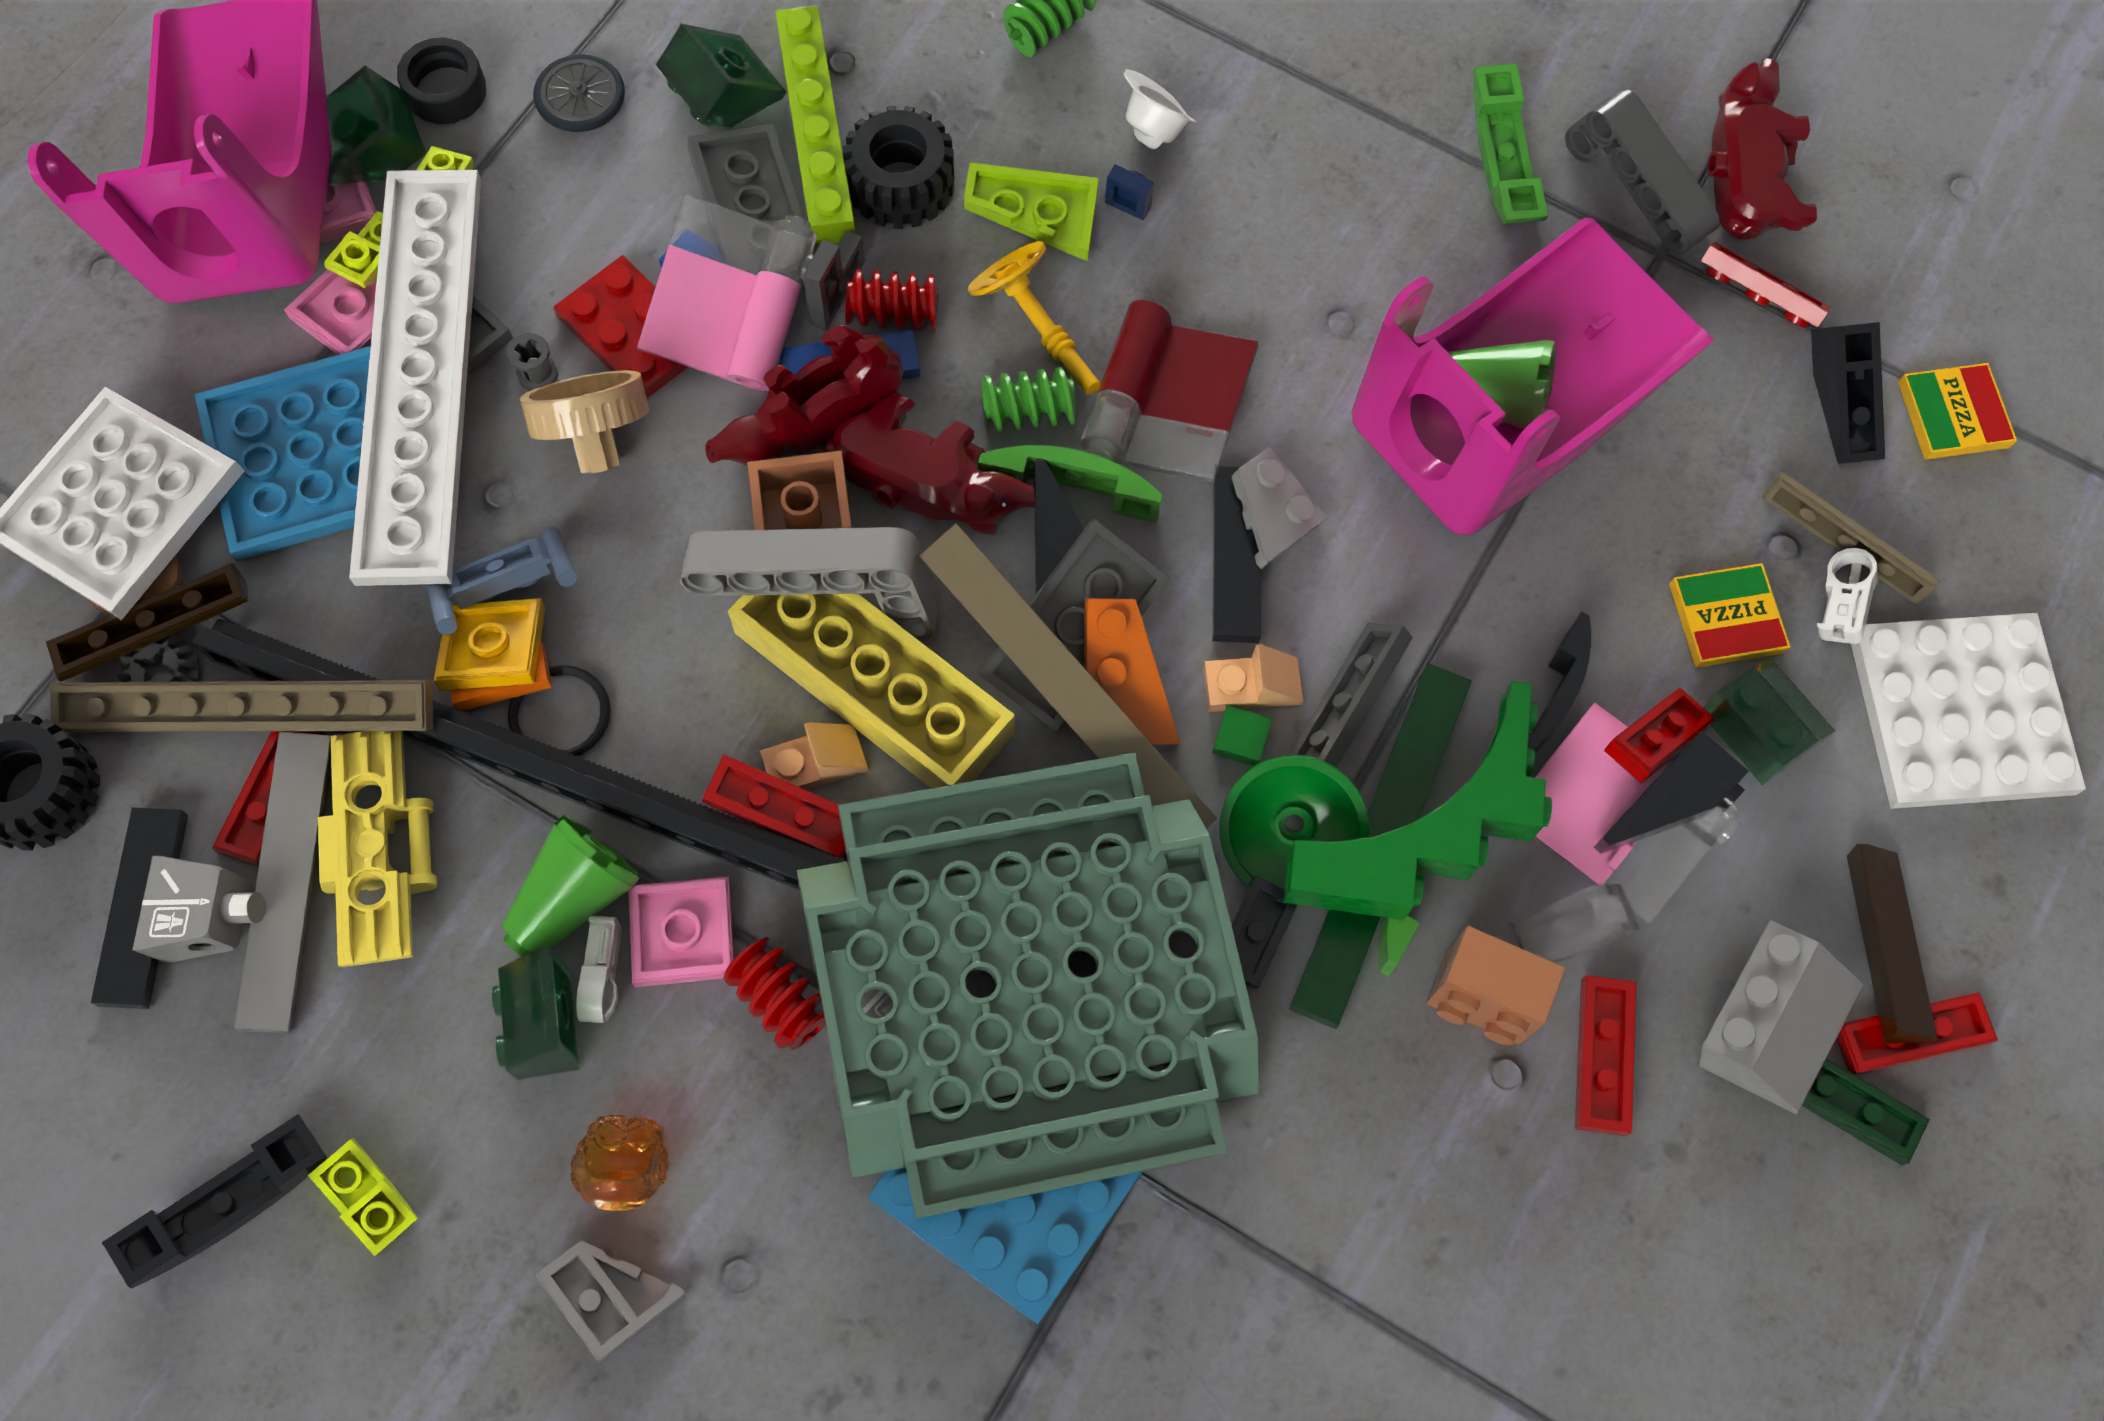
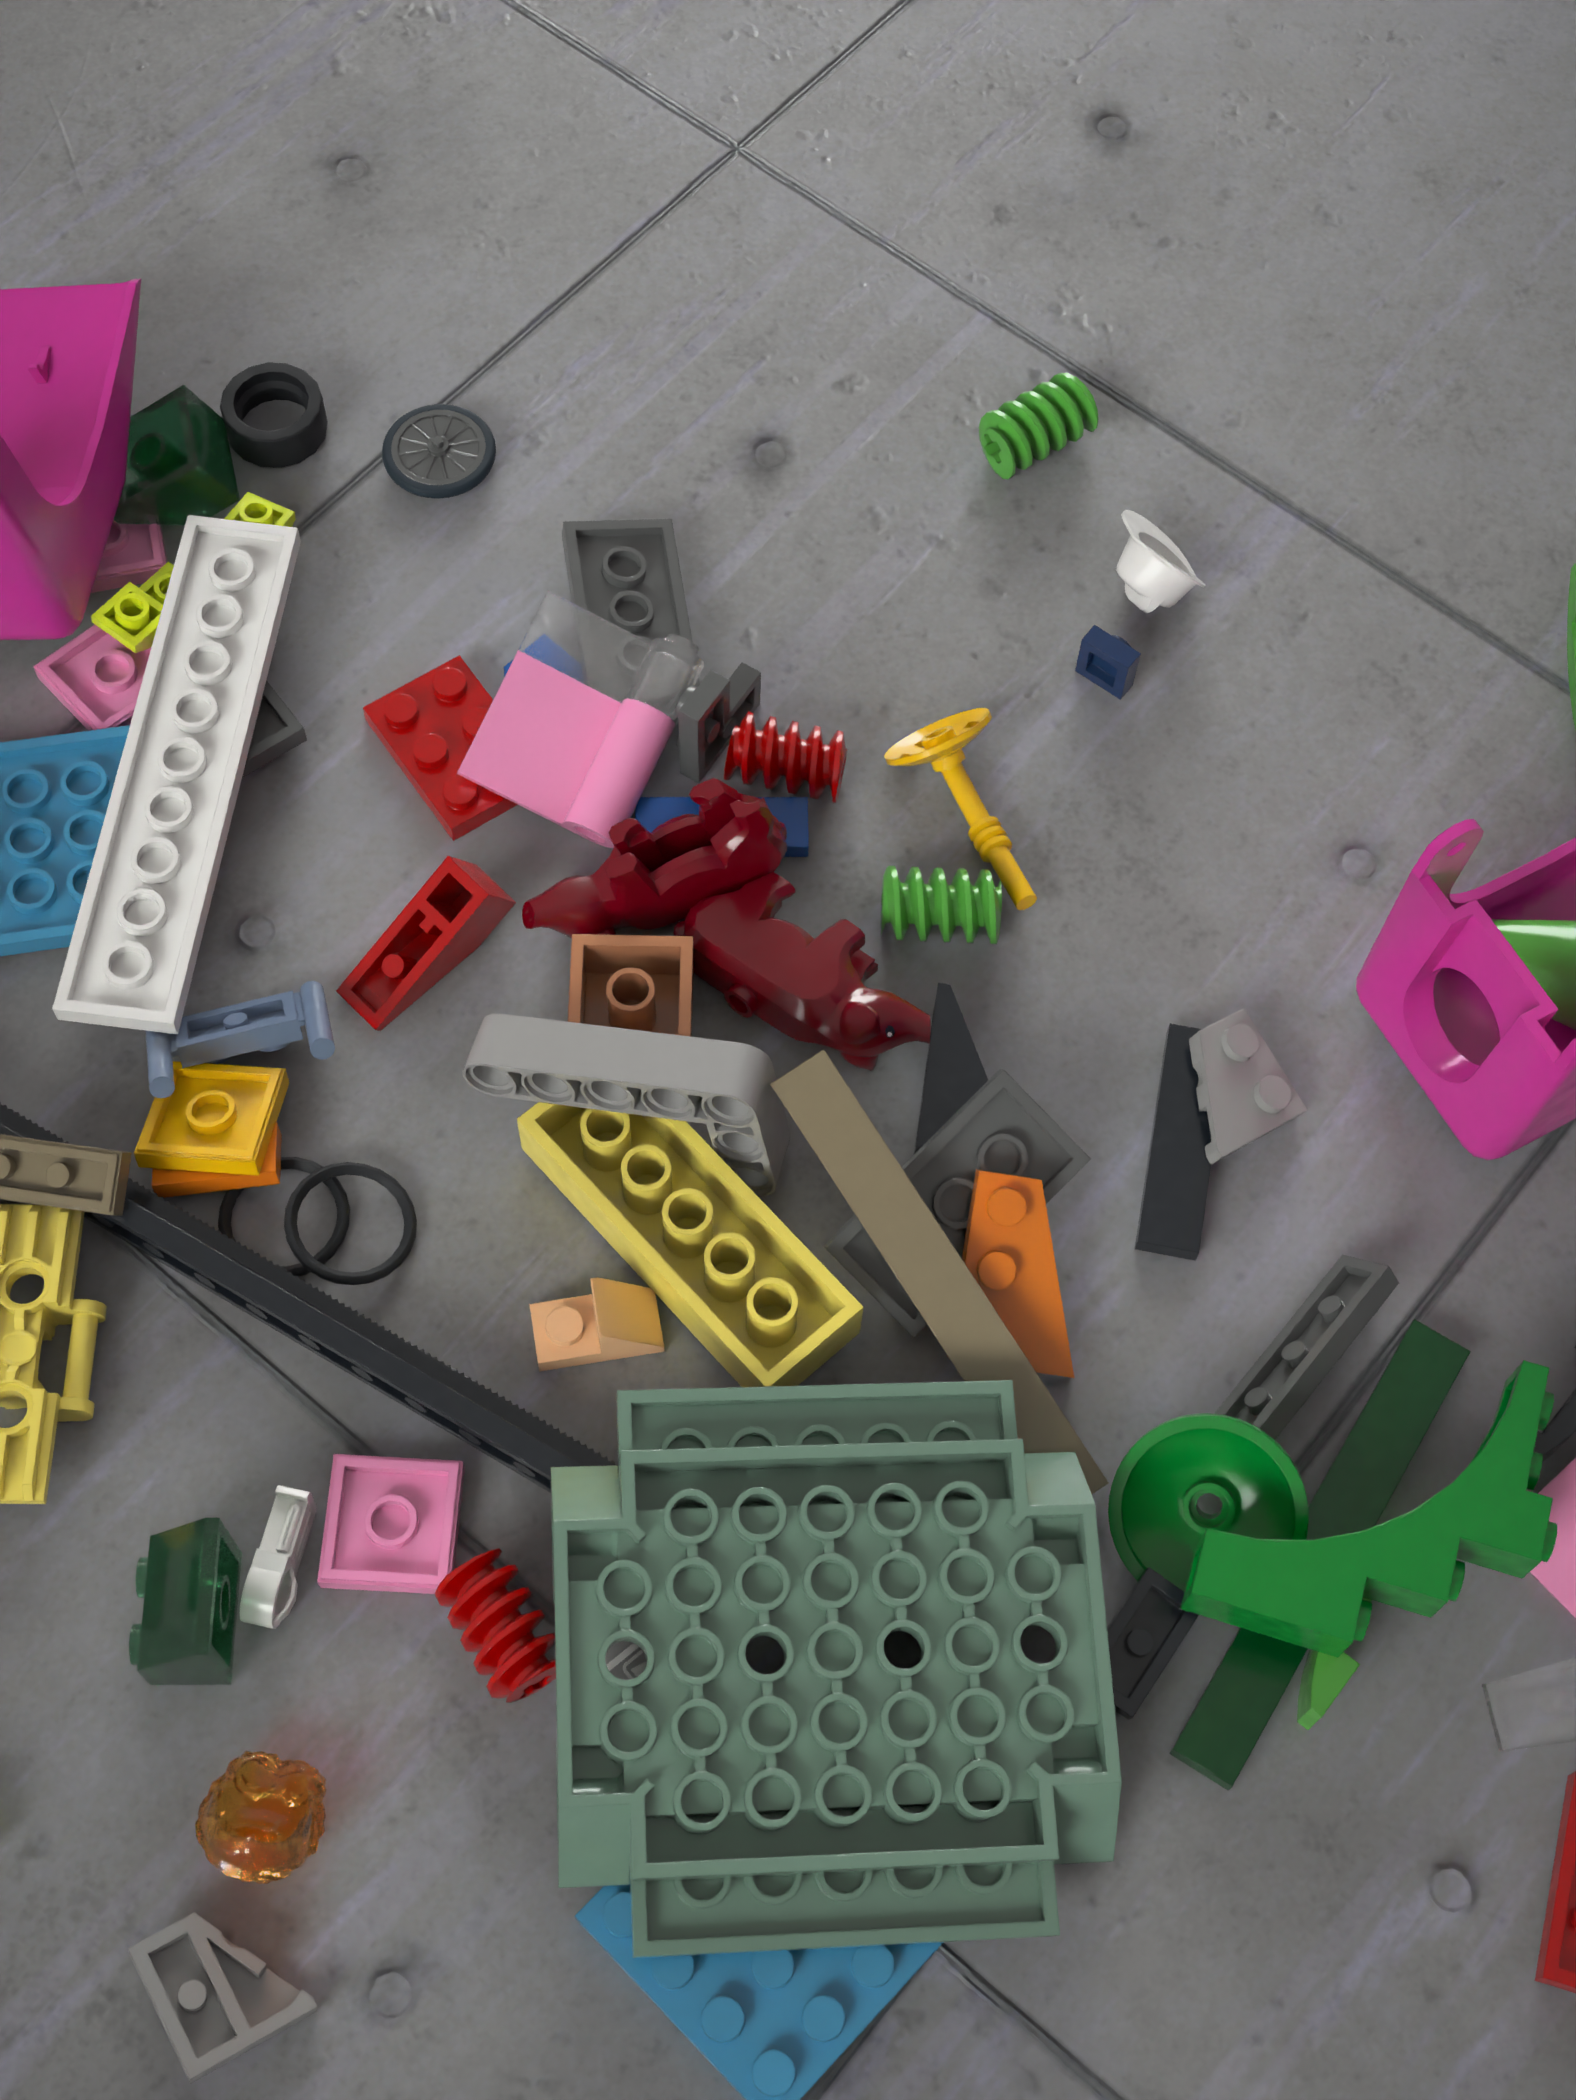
camera: 10 degrees right, 5 degrees down
(532, 361) = (326, 773): dark grey bush -> none
(565, 887) = (253, 1442): bright green cone -> none
(587, 412) = (381, 844): tan piece -> none
(593, 748) = (333, 1275): none -> black tyre
(633, 483) = (426, 941): none -> red slope
(718, 76) = (613, 452): clear green slope -> none
(775, 805) = (537, 1379): red plate -> none
(815, 123) = (724, 527): lime arch -> none
(892, 139) = (821, 557): black tyre -> none
(1036, 203) = (987, 660): lime wing -> none
(1080, 470) = (995, 1004): bright green slope -> none
(1168, 395) = (1121, 925): dark red door -> none
(1242, 735) = (1156, 1378): green tile -> none
(1254, 682) = (1184, 1311): light nougat slope -> none
(1494, 987) = (1449, 1768): nougat brick -> none

